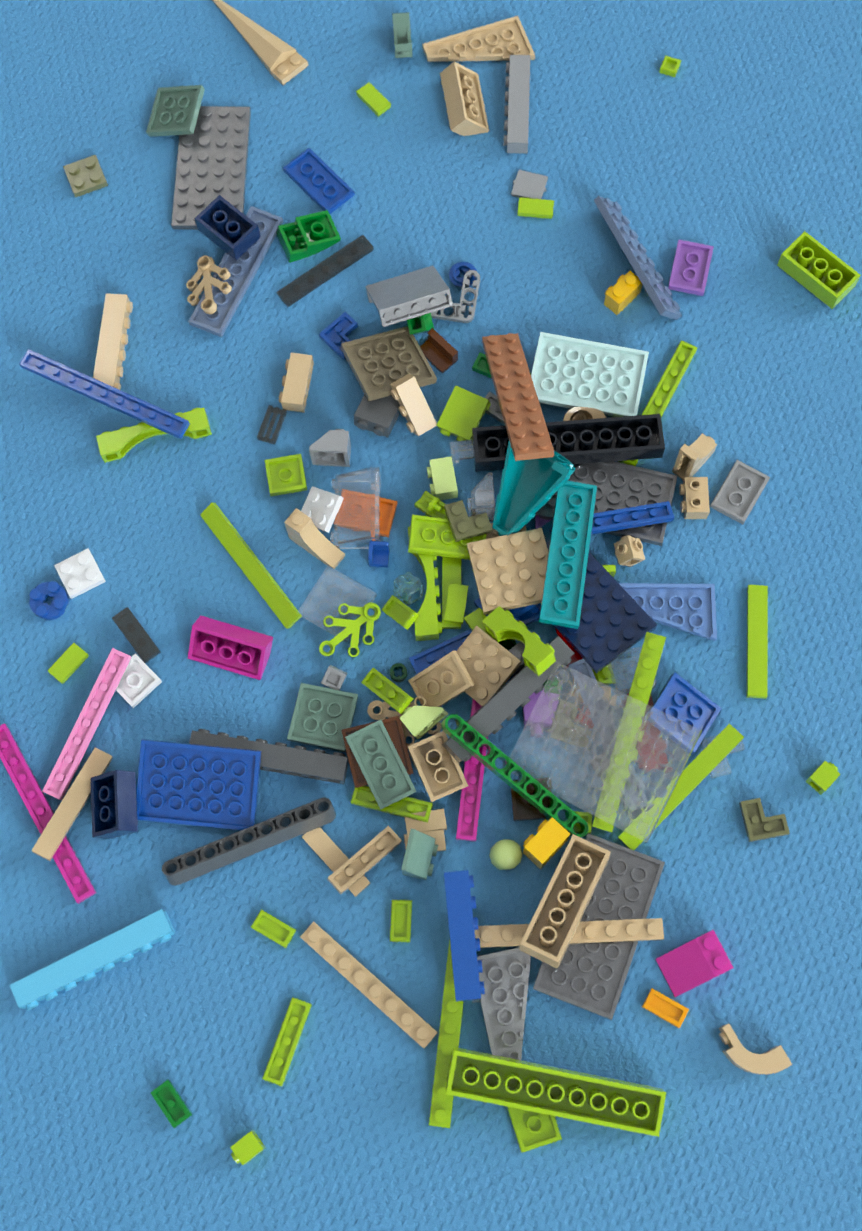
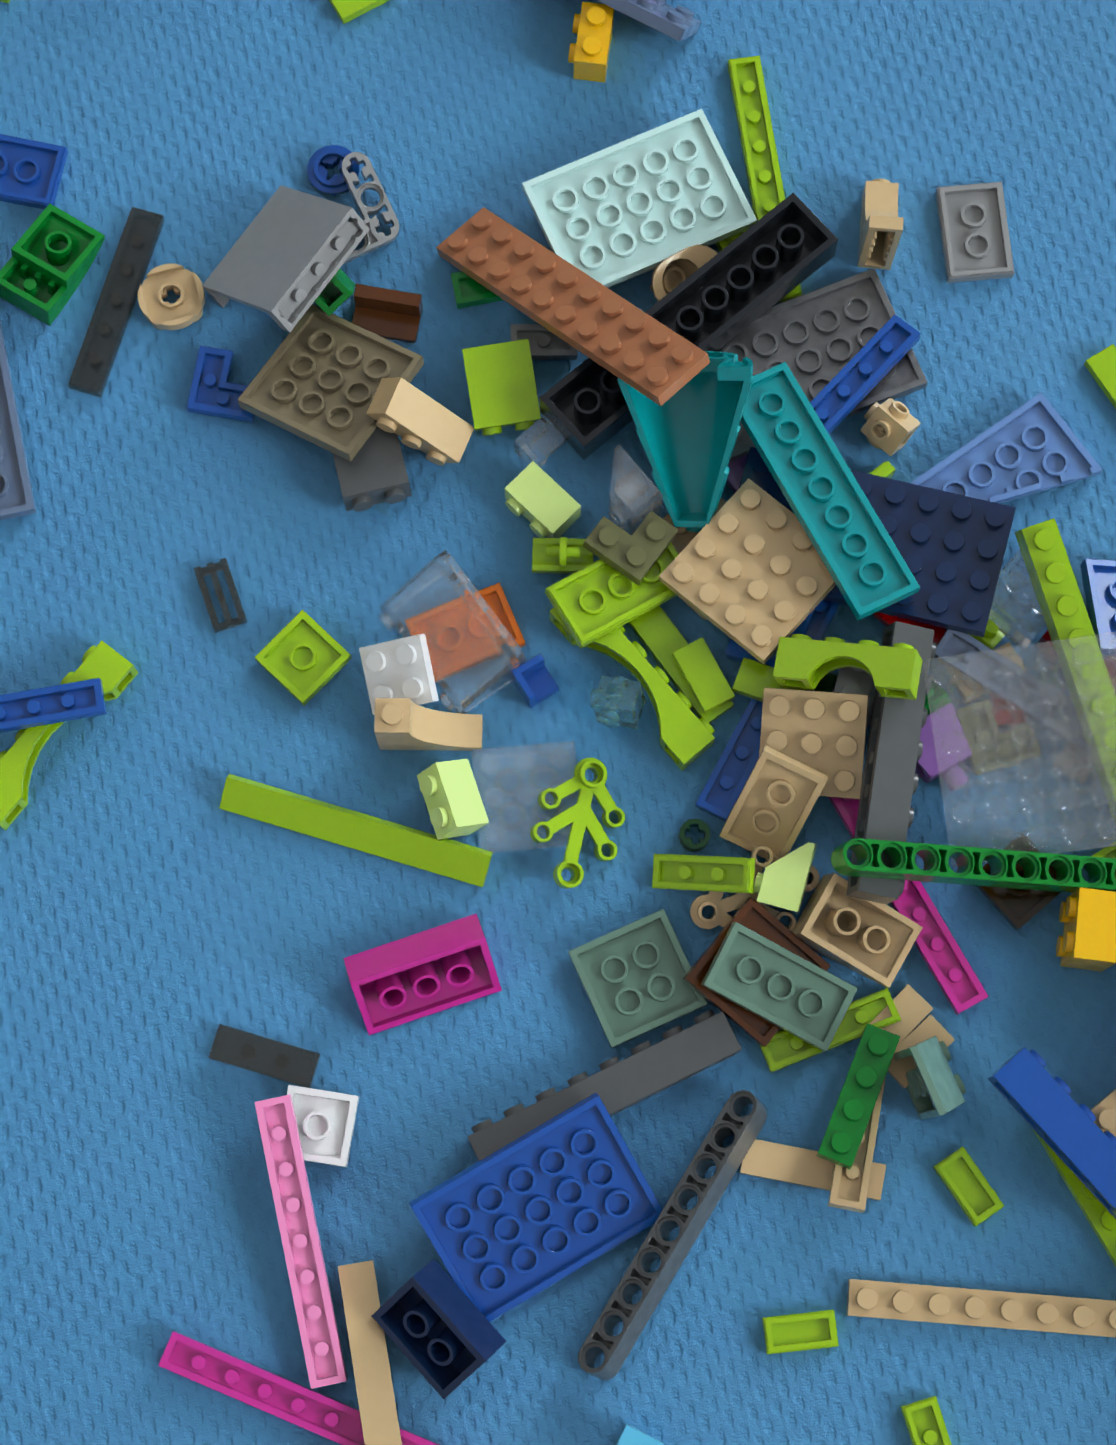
camera: 40 degrees left, 5 degrees up
(46, 590) = (68, 1101): blue plate -> none
(68, 663) = (195, 1172): lime tile -> none
(80, 573) = (104, 1025): white plate -> none
(296, 382) = (209, 505): tan brick -> none
(301, 579) = (452, 798): none -> yellowish green brick
(332, 449) = (349, 570): light grey slope -> none
(334, 678) = (610, 909): light grey plate -> none
(349, 293) = (185, 309): none -> tan plate
(378, 840) = (858, 1096): none -> green plate
(400, 612) = (633, 745): lime tile -> none
(505, 854) = (1041, 986): yellowish green hair -> none
(695, 498) = (922, 283): tan brick -> none

